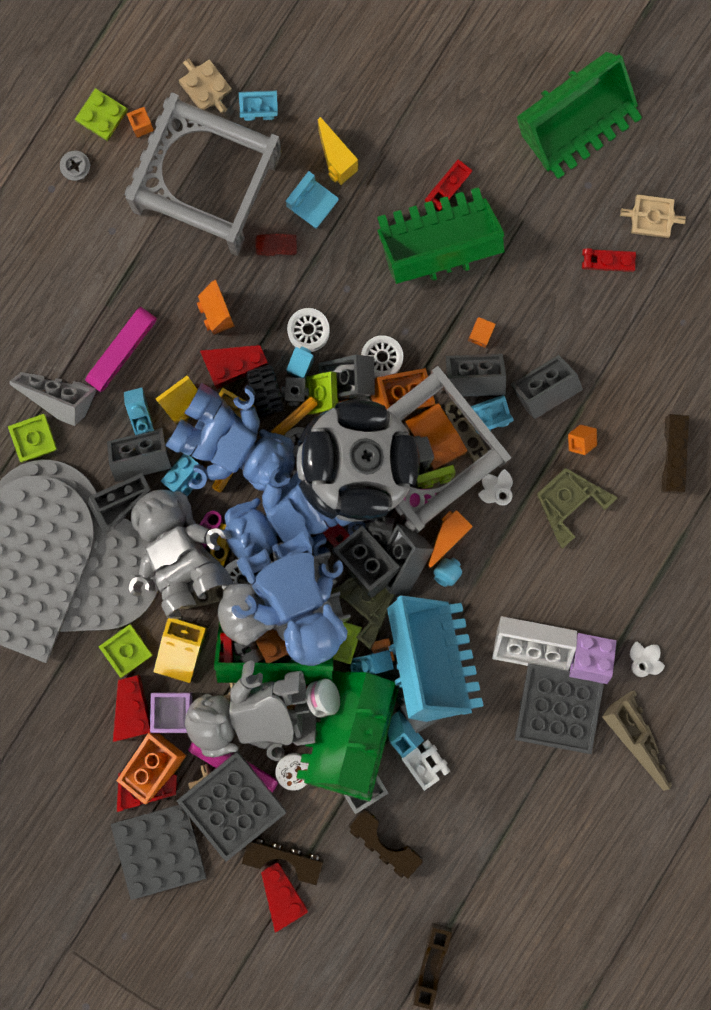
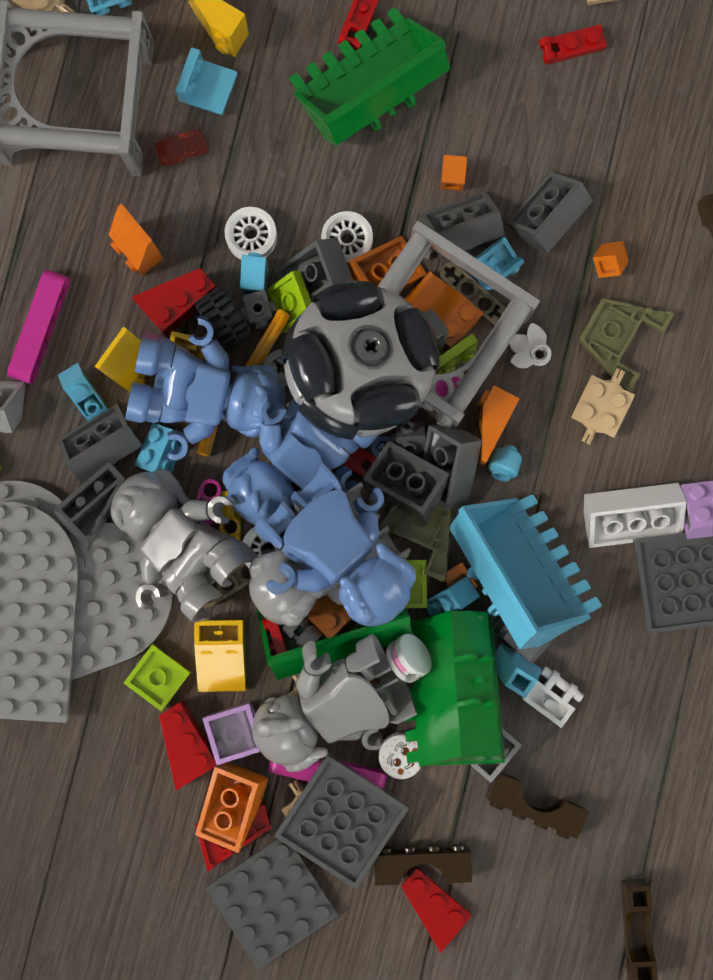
camera: 15 degrees left, 0 degrees up
(538, 552) = (603, 406): none -> tan plate

